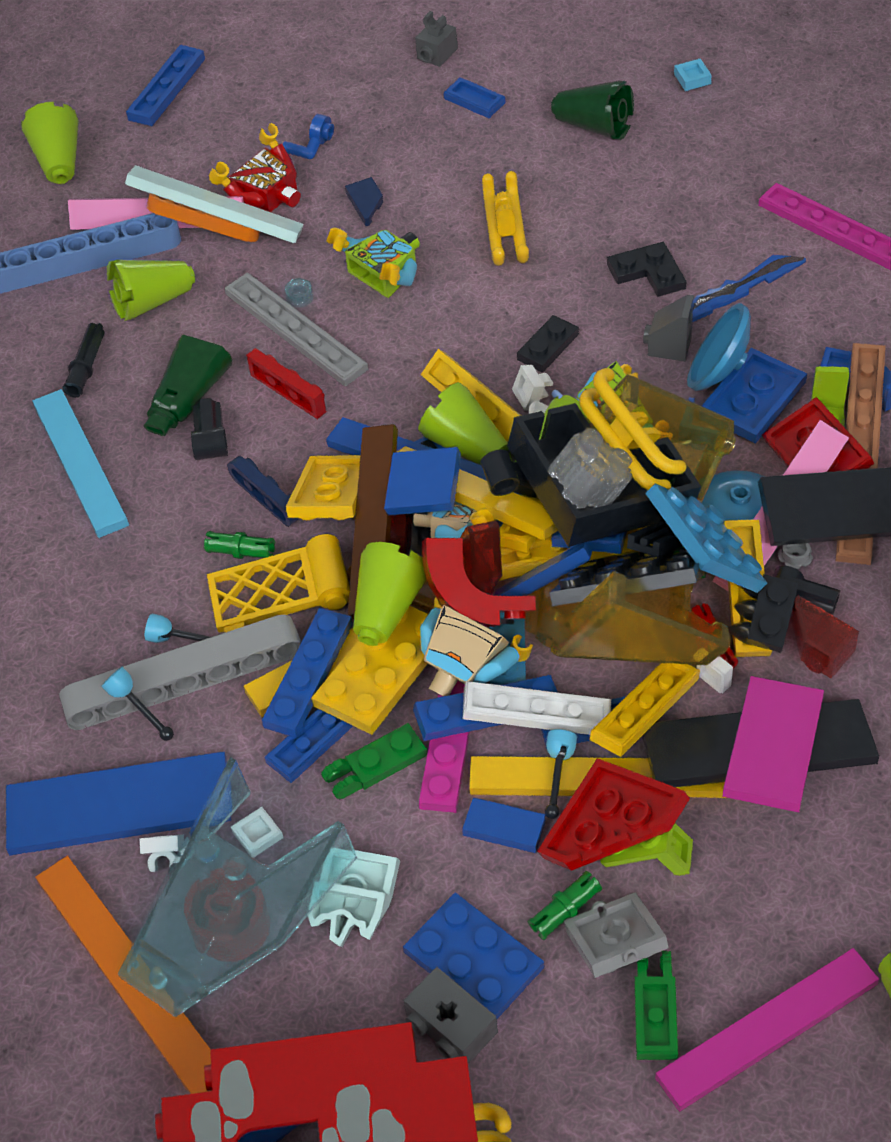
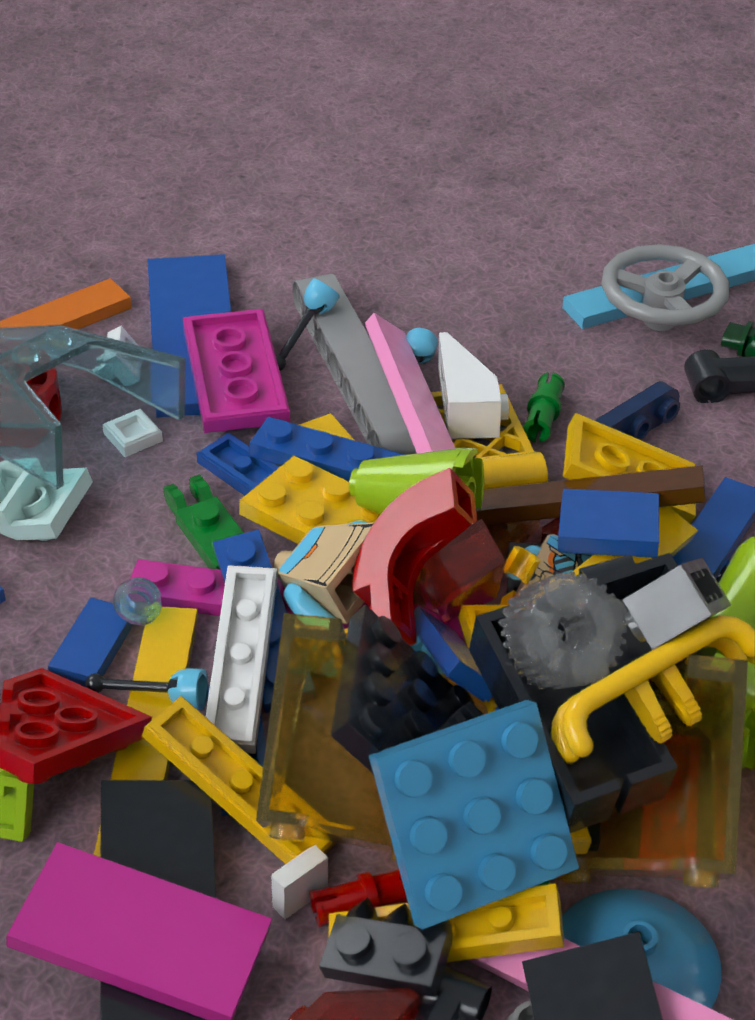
camera: 85 degrees right, 10 degrees down
(116, 455) = (664, 291): none -> light grey piece
(185, 755) = (235, 370): none -> dark pink tile
(234, 586) = (469, 393): none -> white slope
(243, 618) = (408, 386): none -> bright pink tile
(475, 787) = (137, 601): none -> clear light blue plate
(579, 405) = (674, 603): none -> brick

